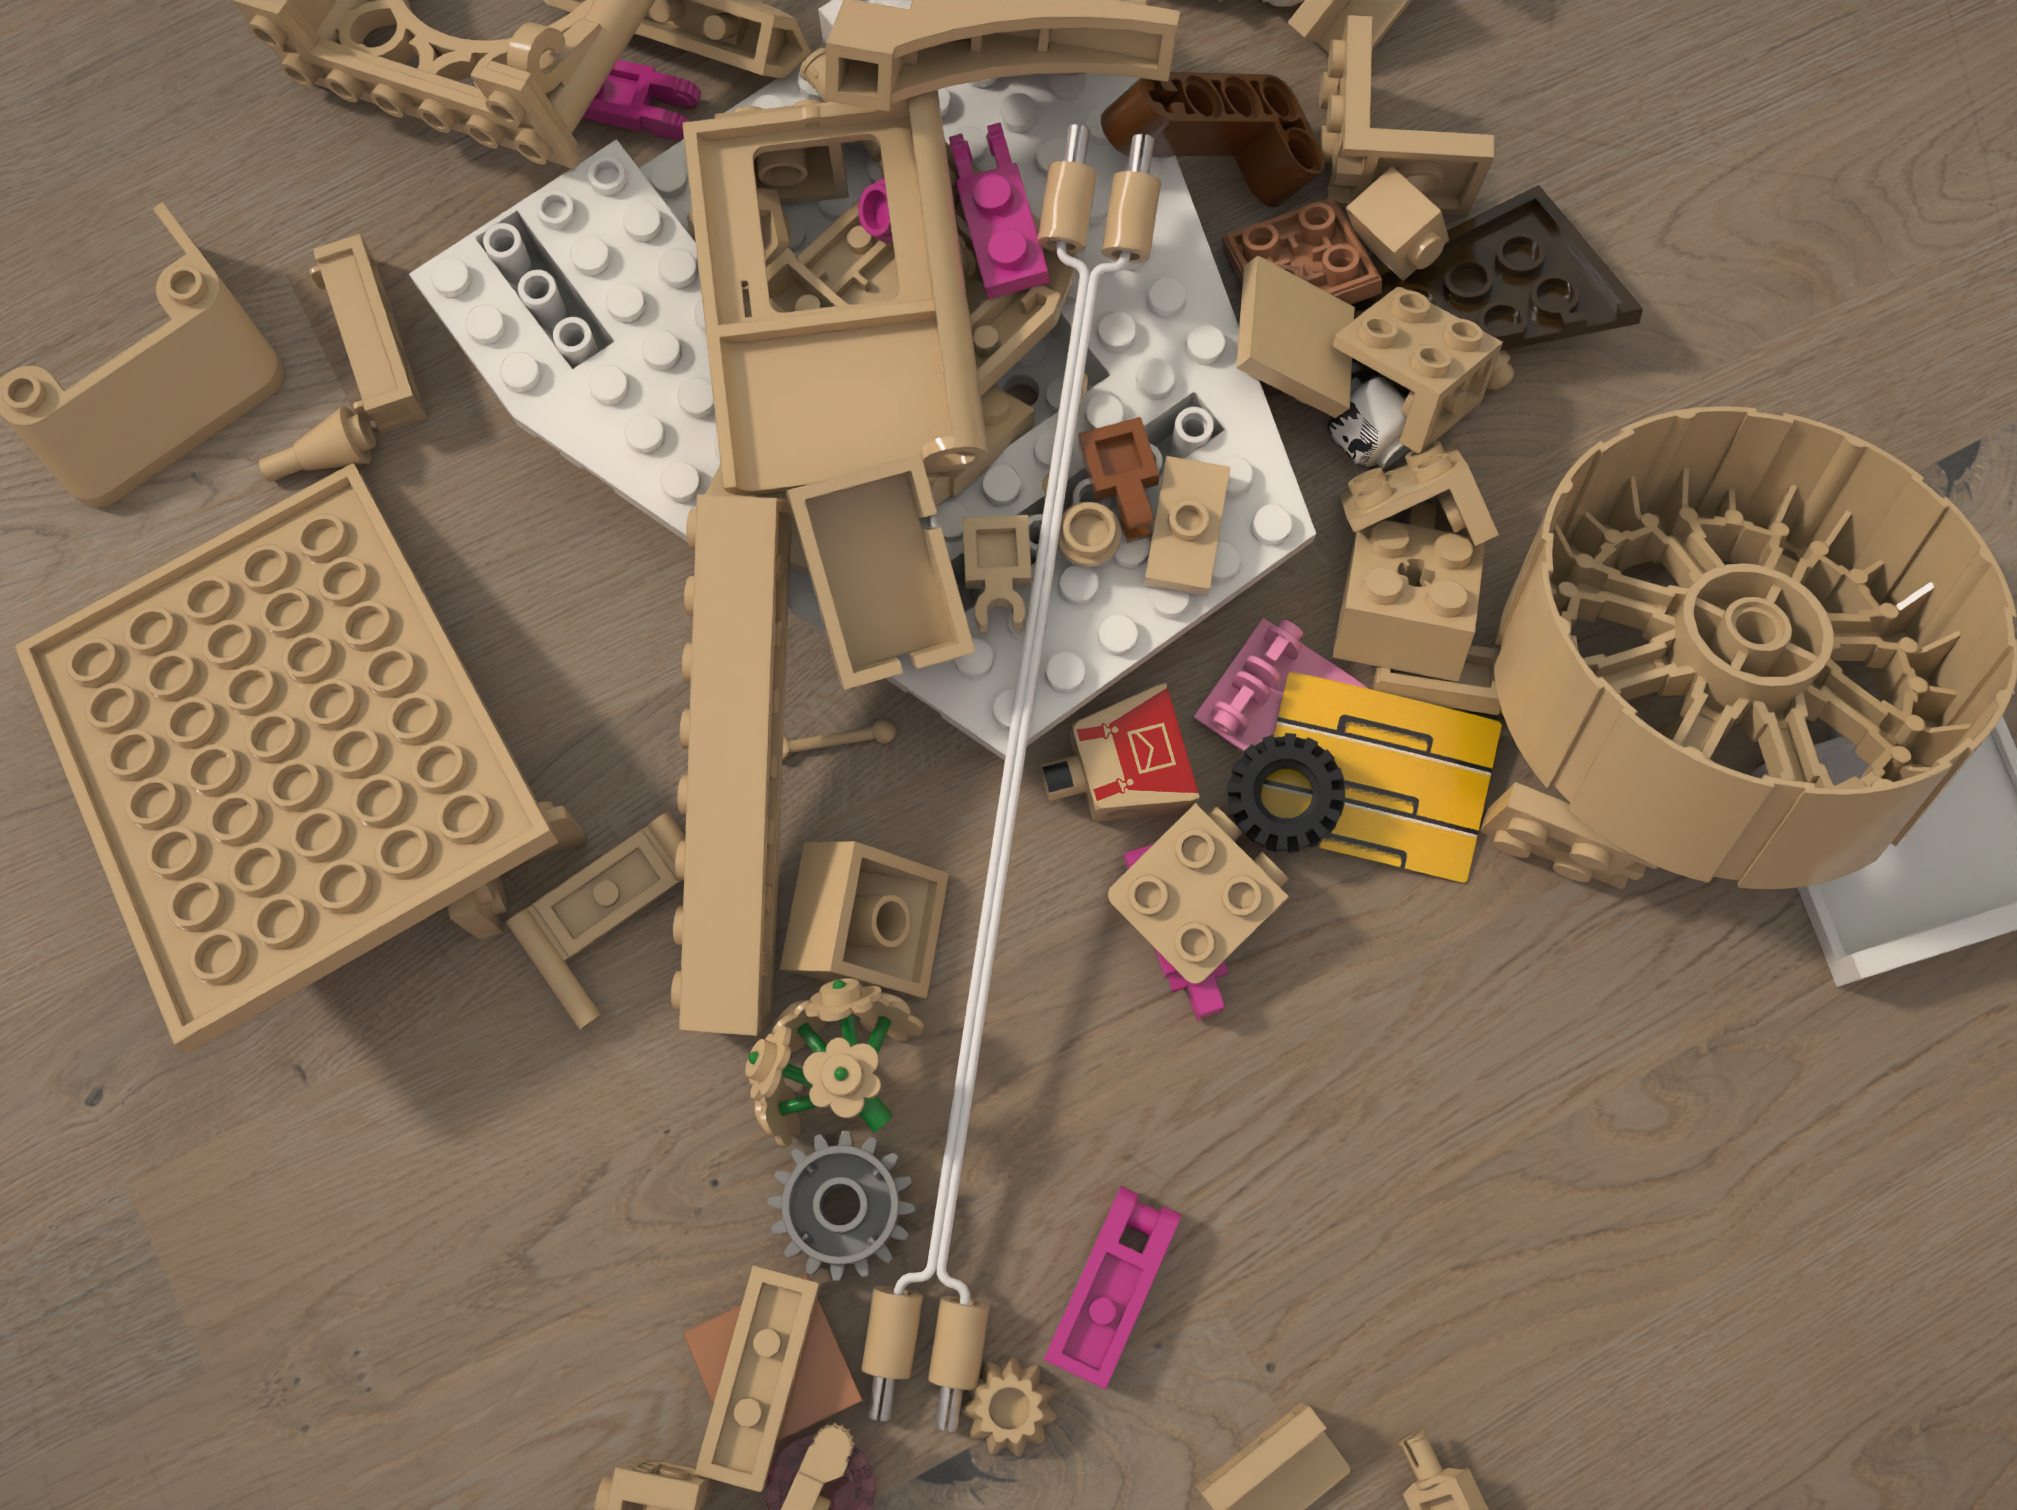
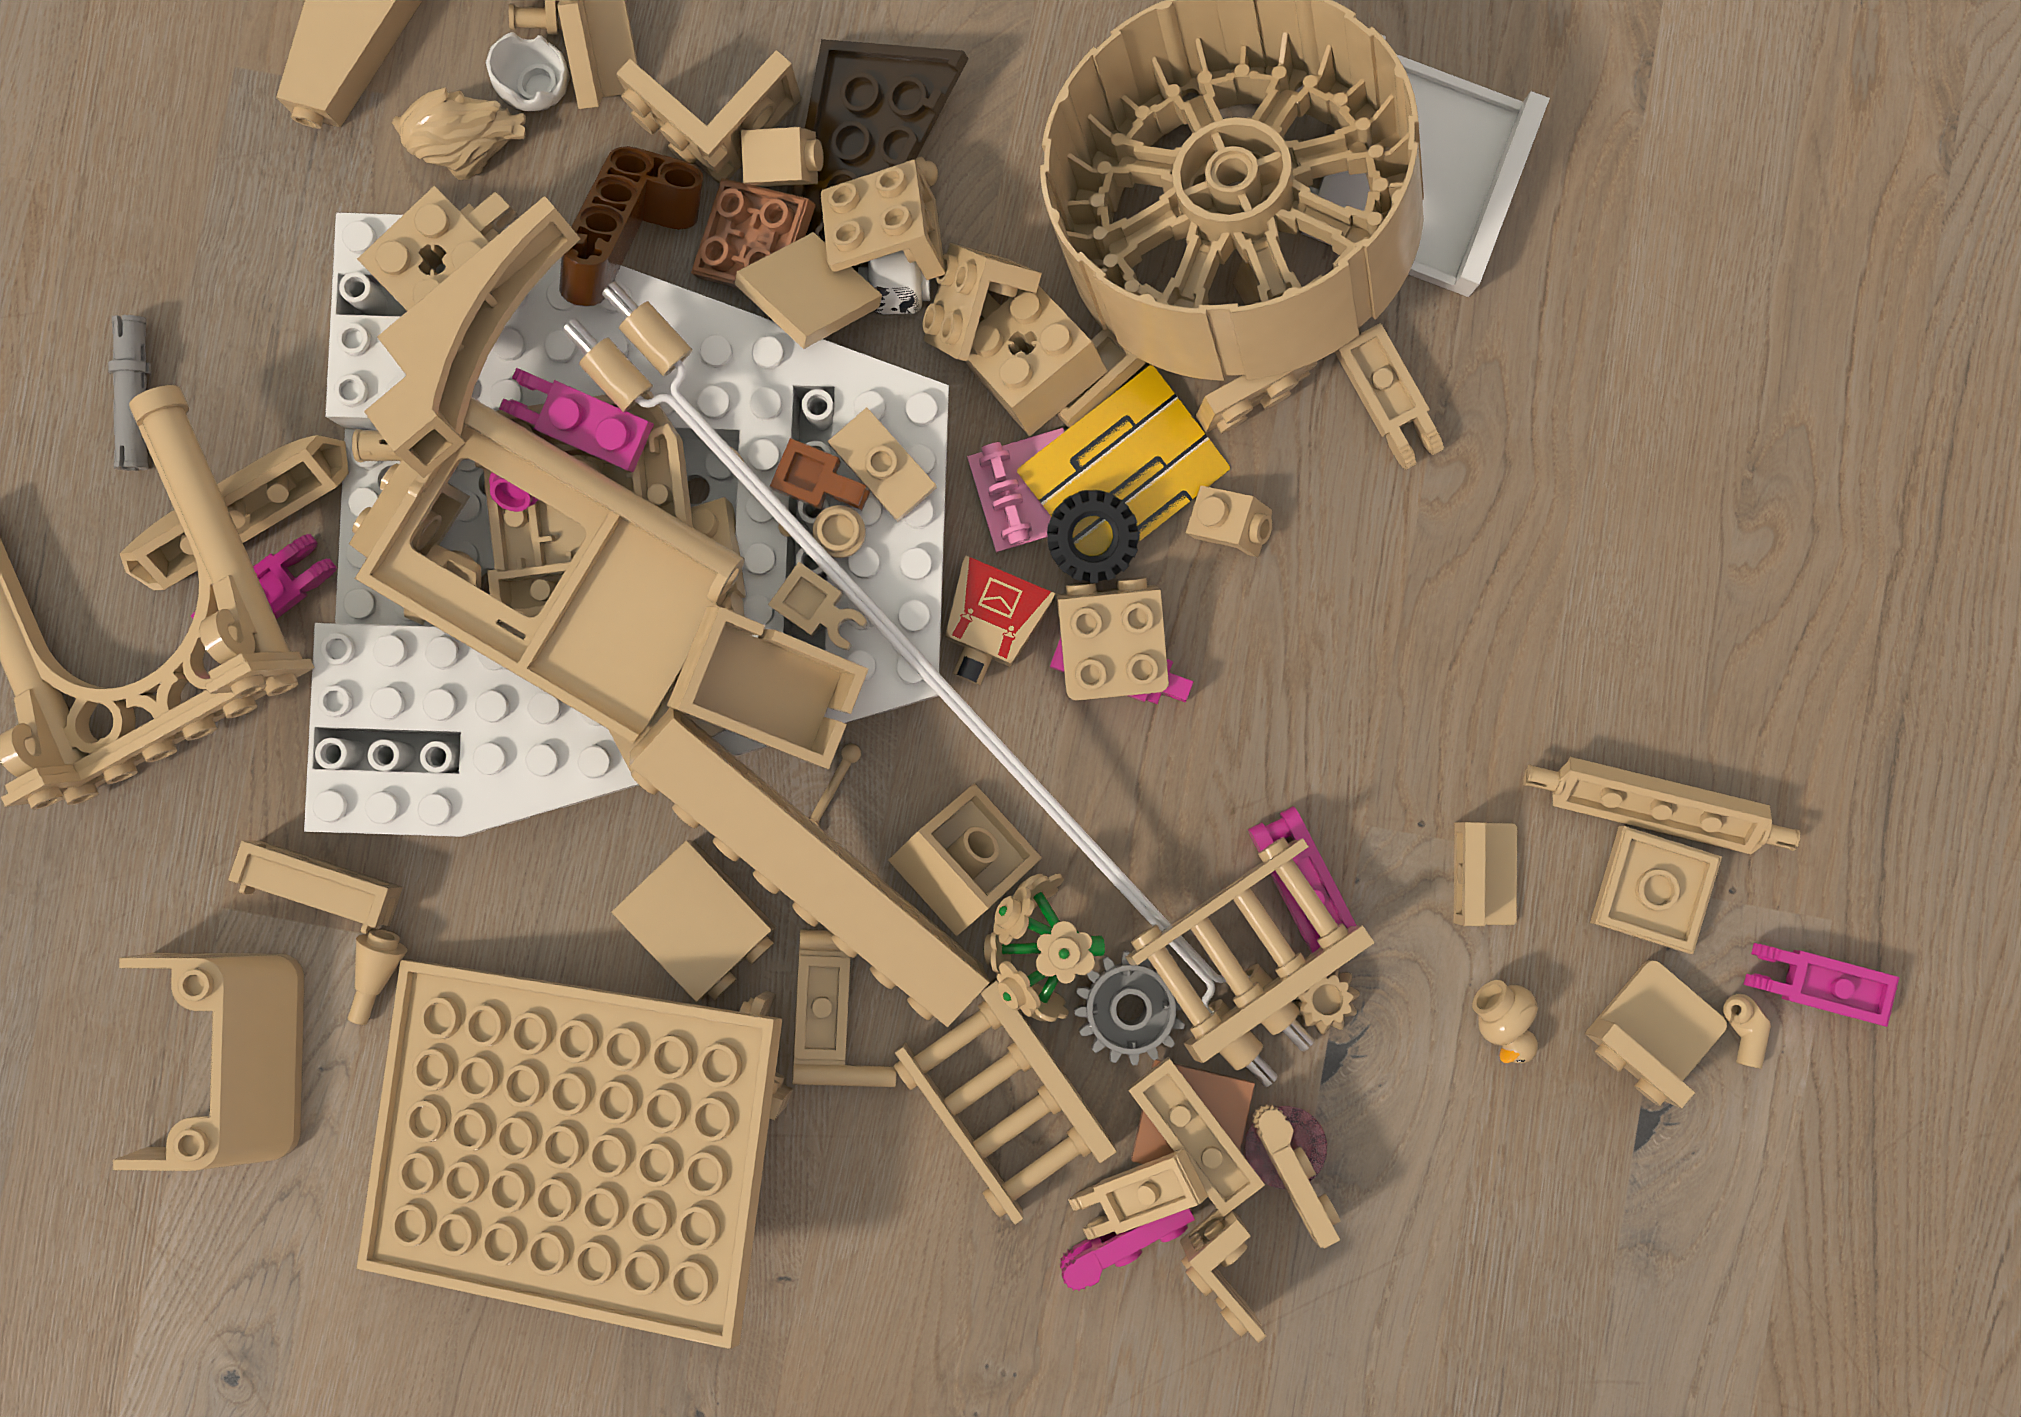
camera: 50 degrees left, 10 degrees up
(593, 1391) = (1088, 1258): none -> dark pink hinge
(599, 707) = (695, 922): none -> tan brick
(655, 1369) = (1142, 1195): none -> tan hinge
(692, 1199) = (1055, 1095): none -> tan fence
(945, 1319) = (1251, 1000): none -> tan fence
(1415, 921) = (1230, 520): none -> tan bracket
(1674, 978) = (1388, 392): none -> tan hinge

